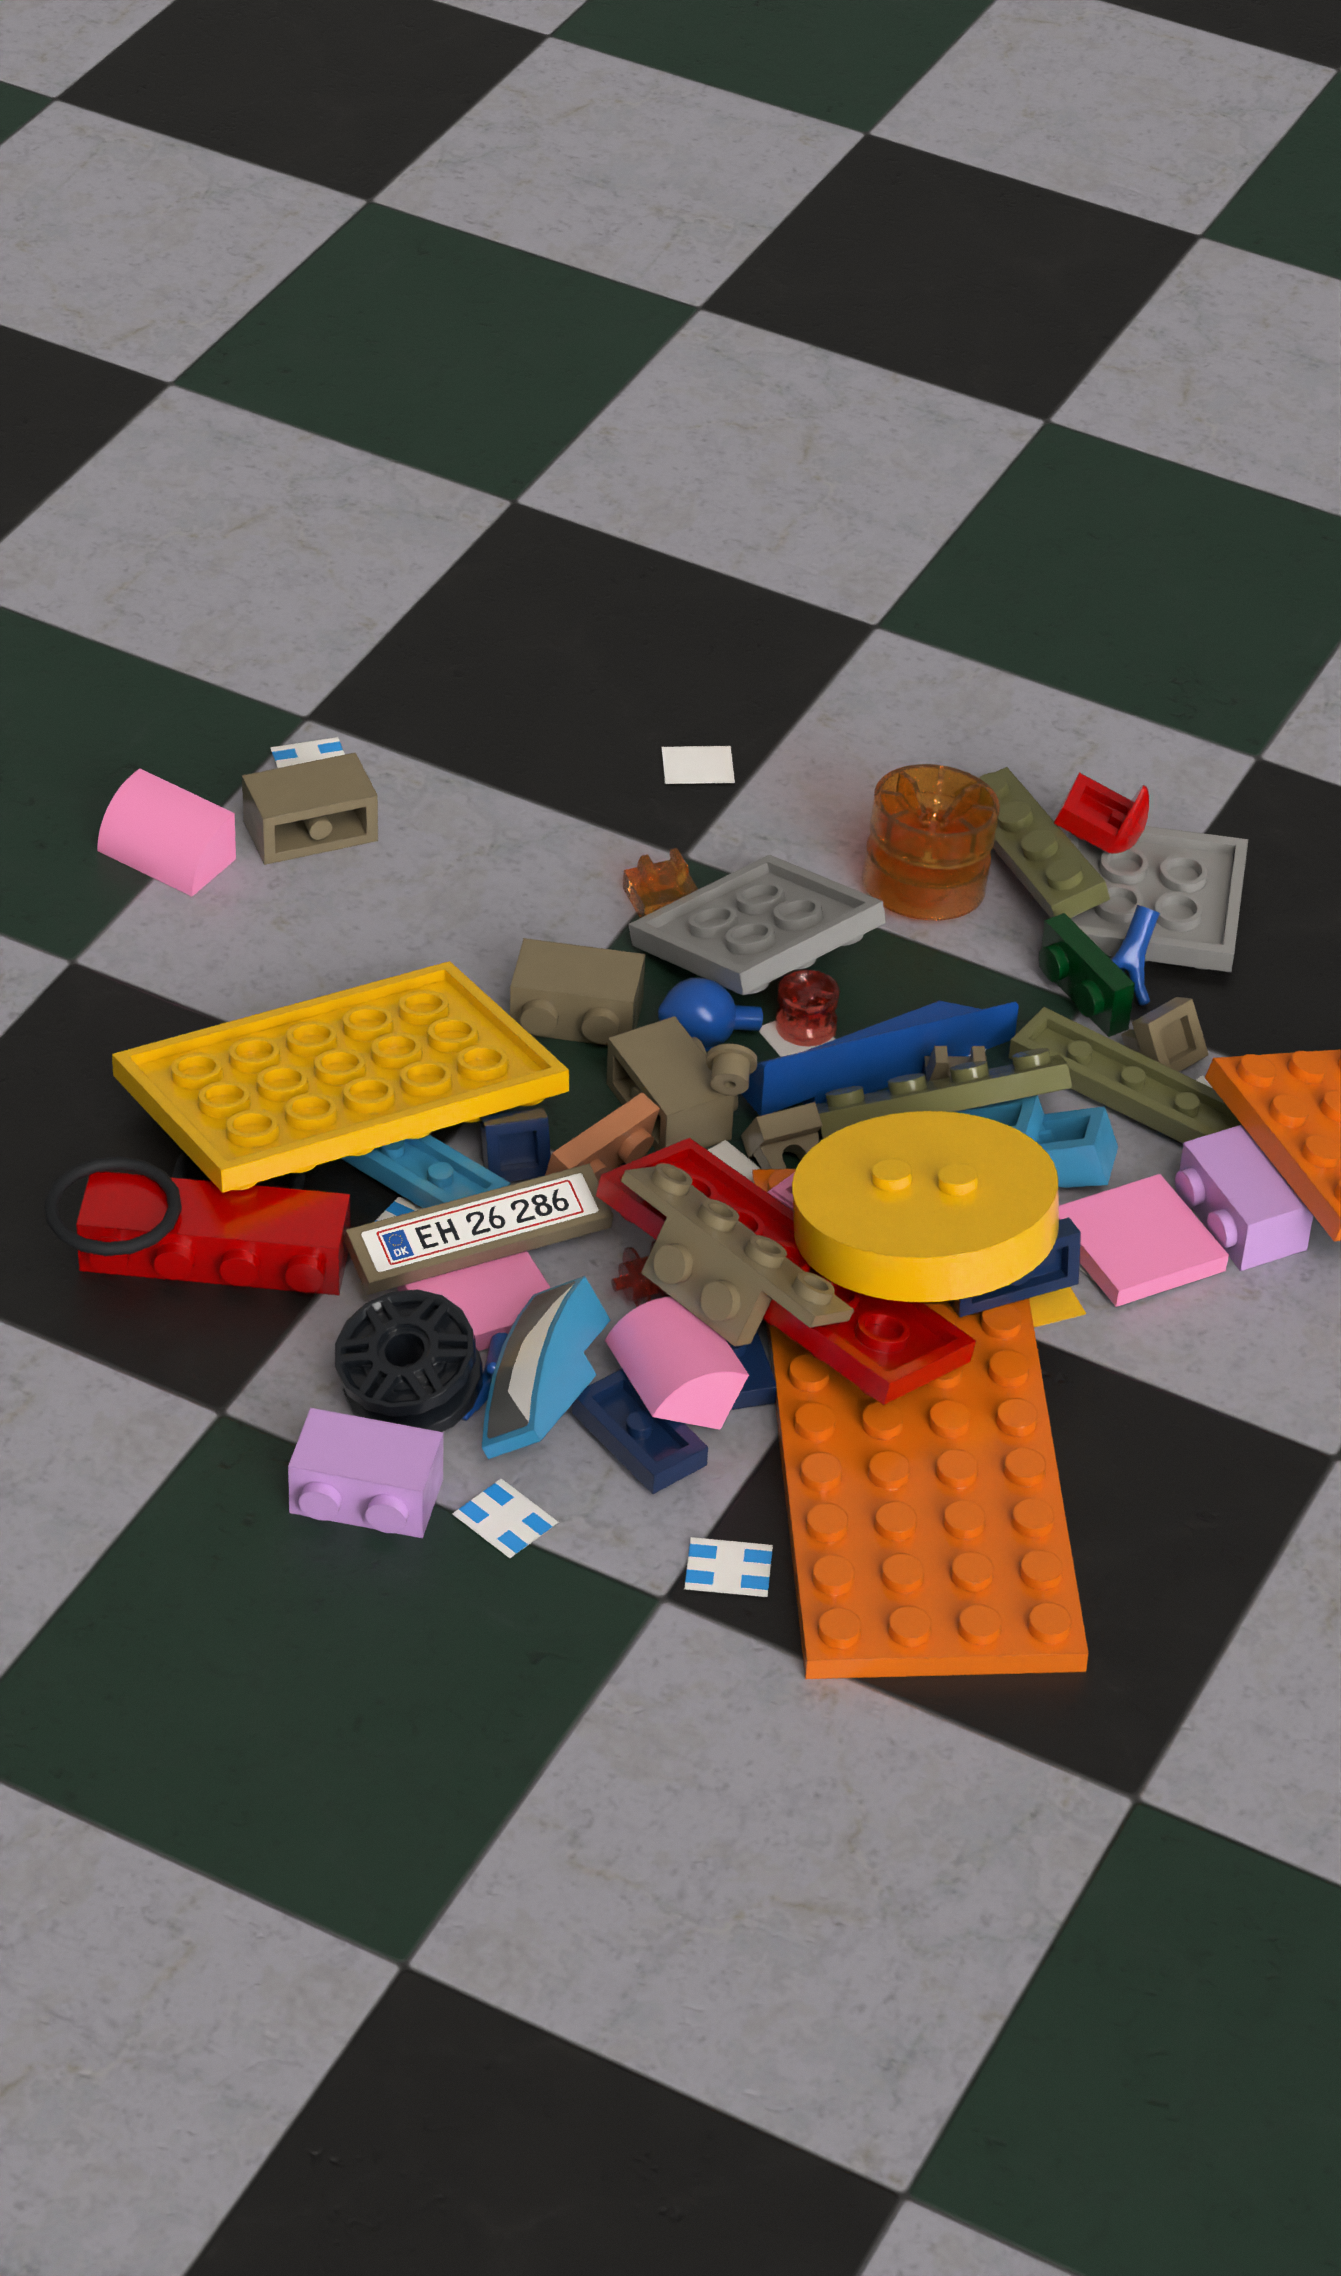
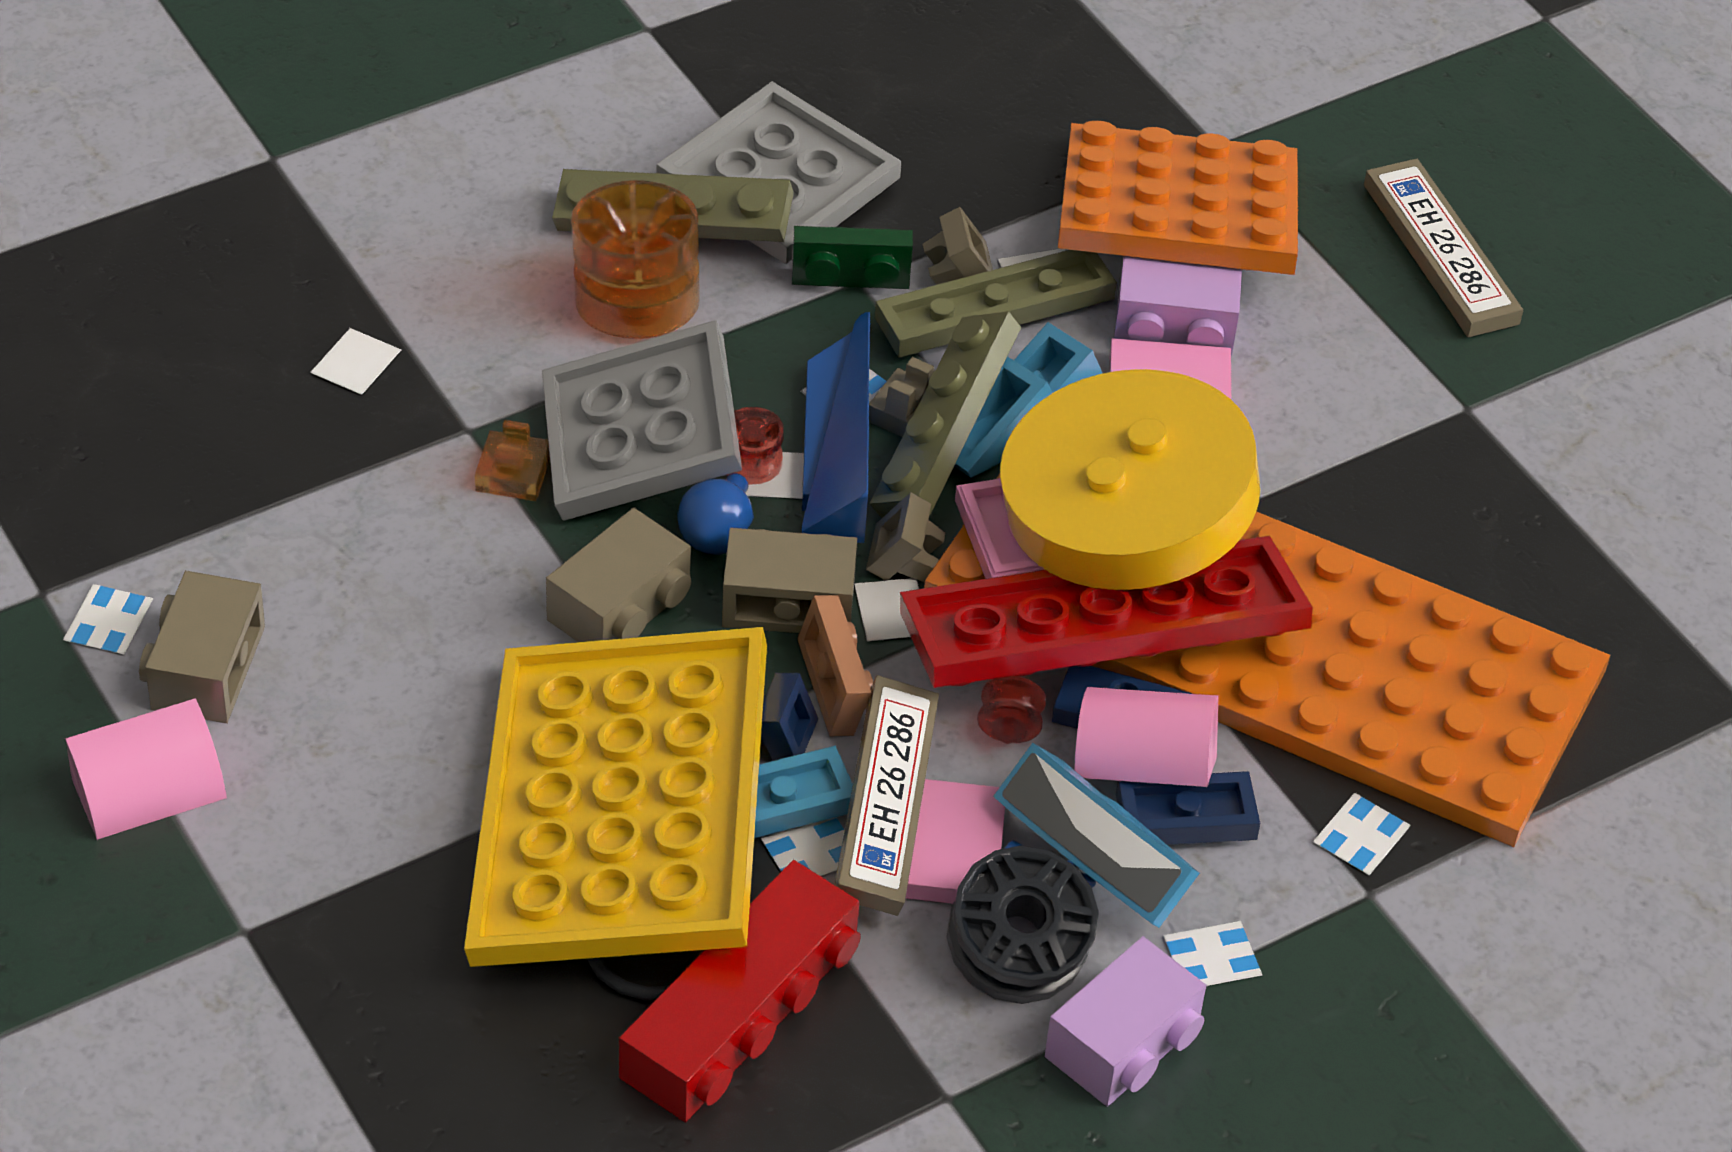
camera: 60 degrees left, 5 degrees up
(116, 1247) = (689, 1095): black piece -> none
(721, 1265) = (1101, 644): dark tan bracket -> none
(731, 1068) = (848, 521): dark tan piece -> none
(1103, 815) = (698, 140): red plate -> none
(1134, 947) = (847, 203): blue bar -> none

